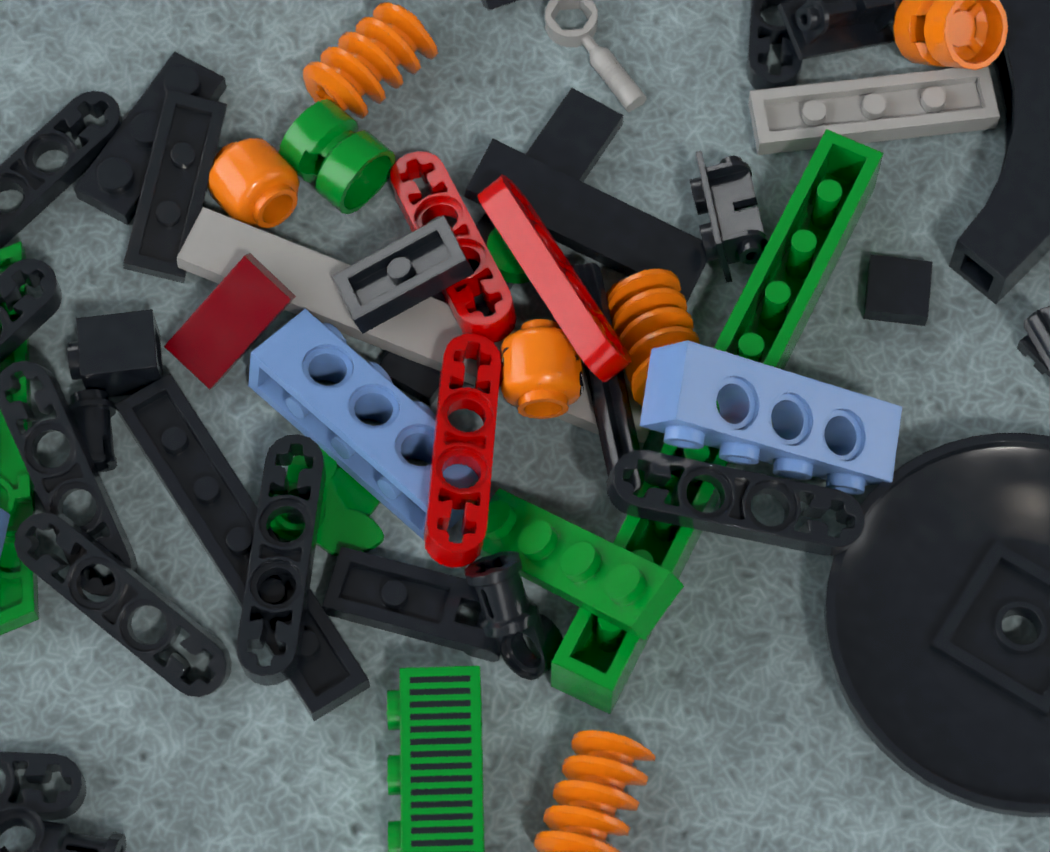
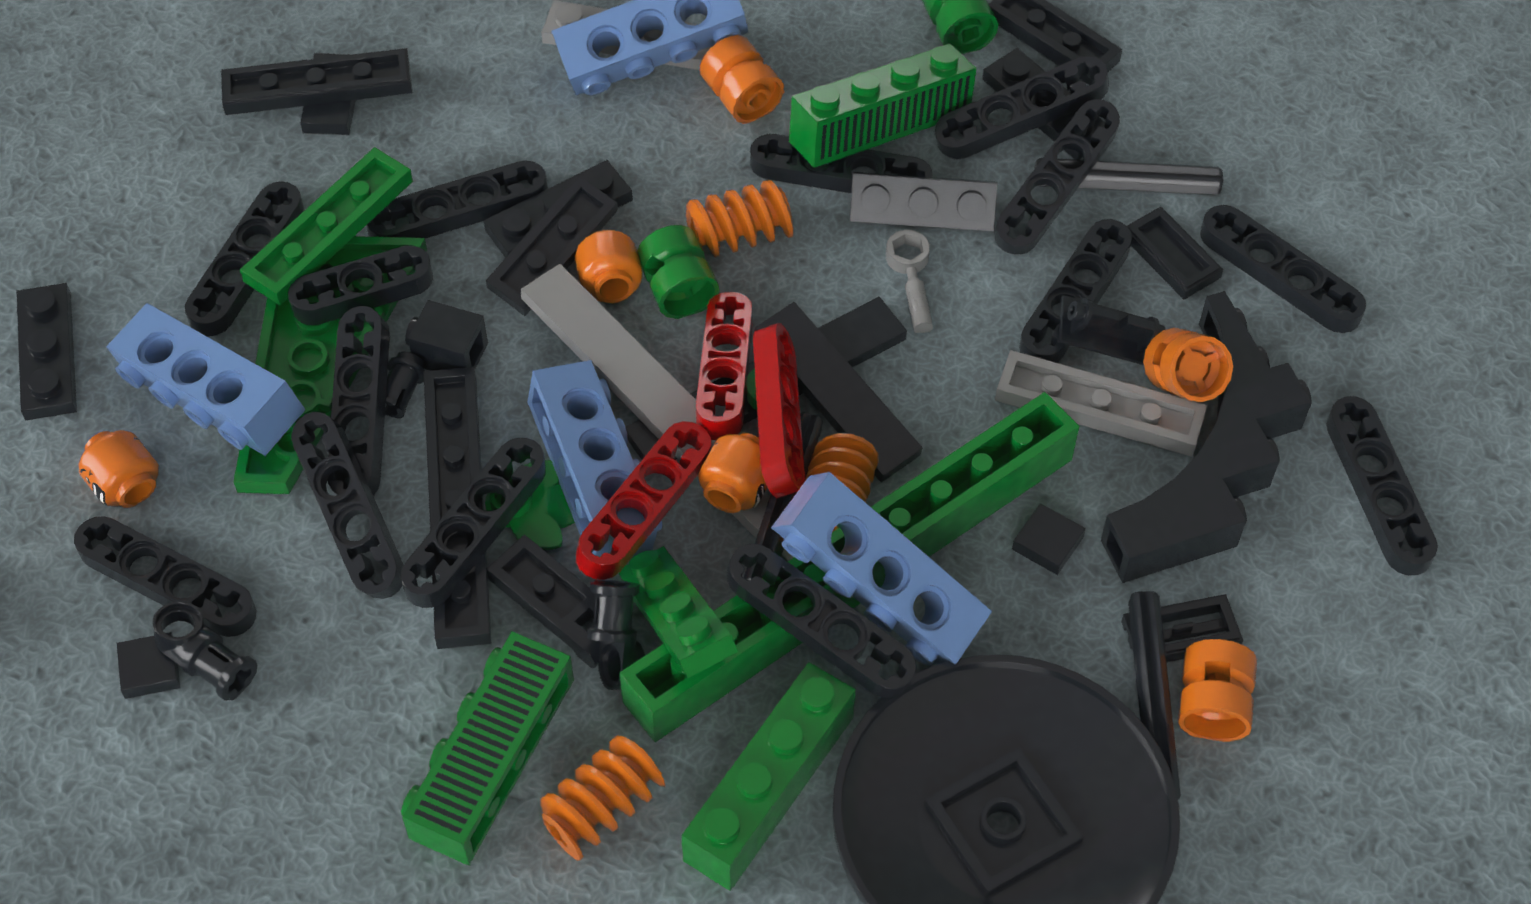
camera: 25 degrees right, 10 degrees down
(229, 321) = (535, 345): dark red tile -> none
(403, 274) = (670, 362): plate -> none
(730, 234) = (942, 424): black hinge -> none
(759, 696) = (768, 776): none -> green brick

